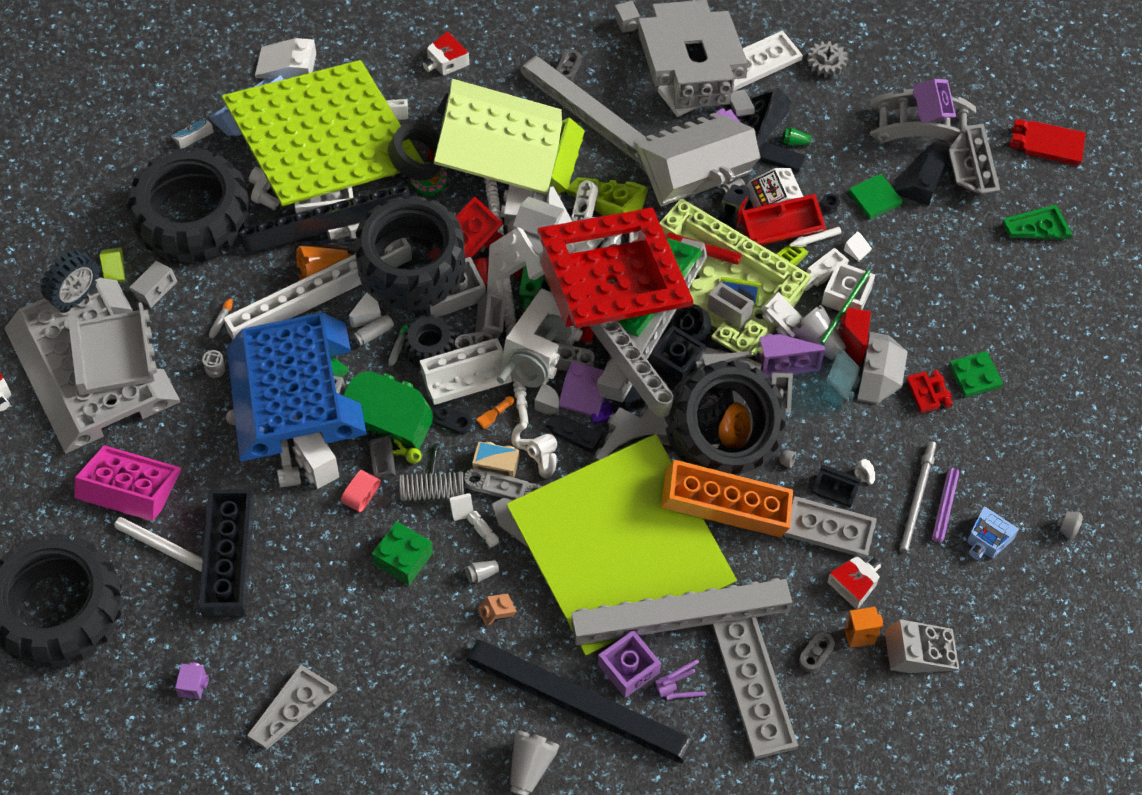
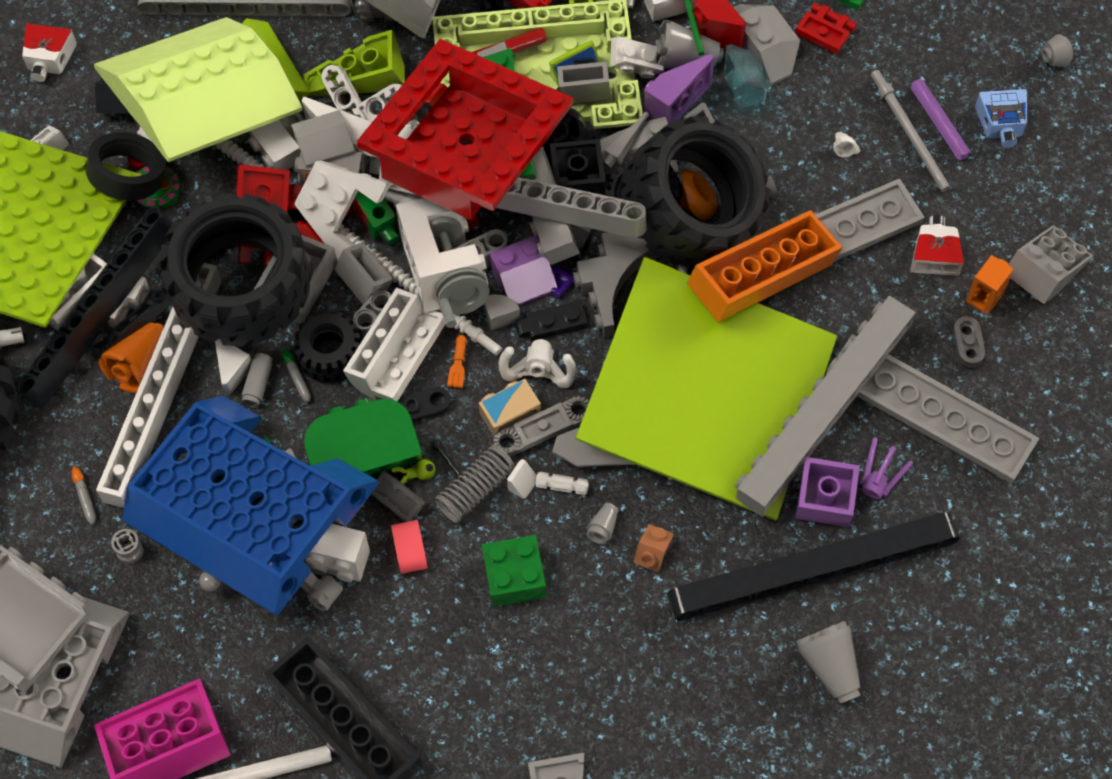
camera: 40 degrees left, 5 degrees up
(836, 485) = (835, 177): black hinge -> none

